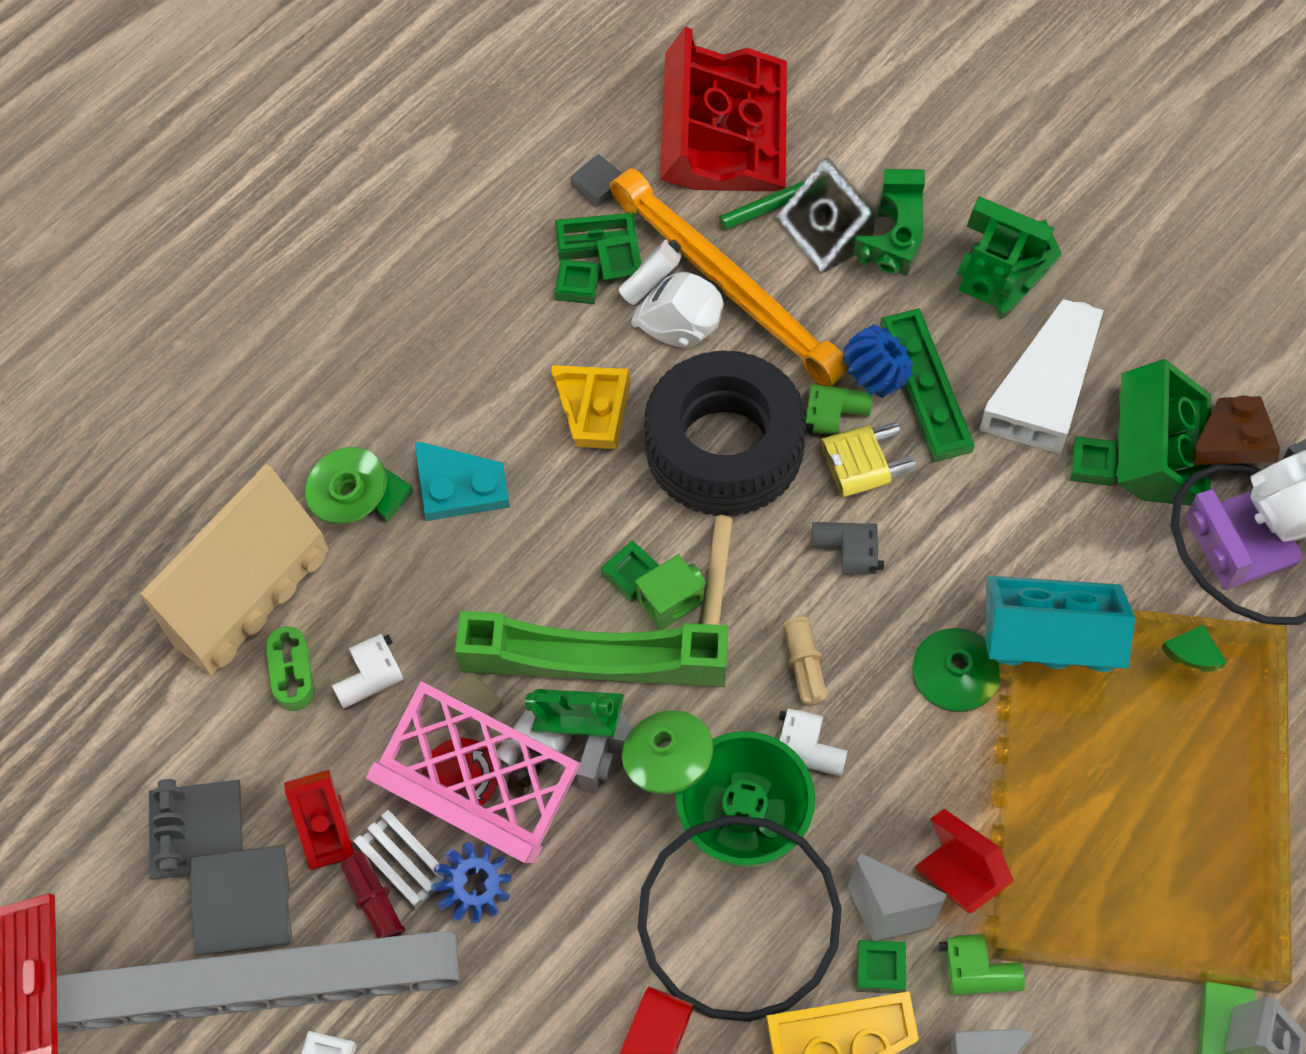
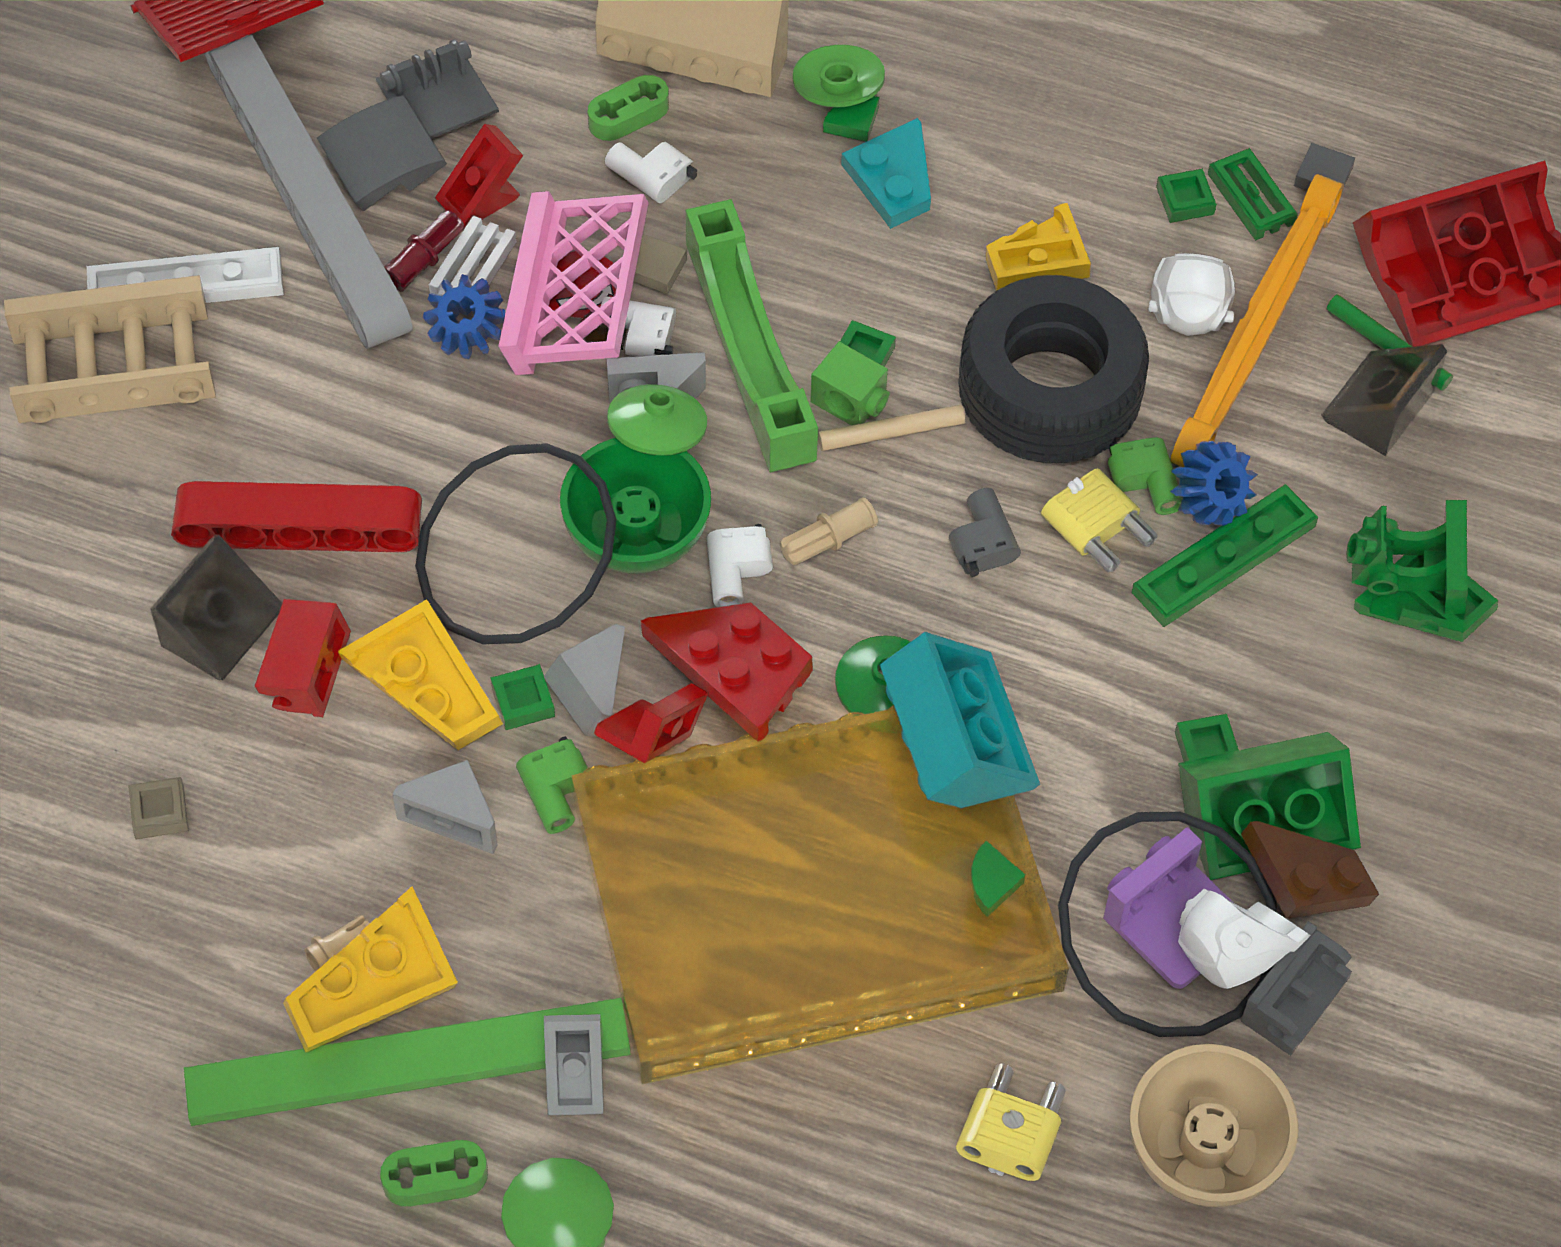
camera: 65 degrees right, 5 degrees down
(574, 712) = (668, 329): green hinge -> none
(618, 256) = (1231, 218): green tile -> none
(651, 271) = (1235, 249): white piece -> none
(902, 201) = (1429, 457): green tile -> none
(915, 776) = (736, 658): none -> red wing
(1044, 385) = (1289, 665): white slope -> none

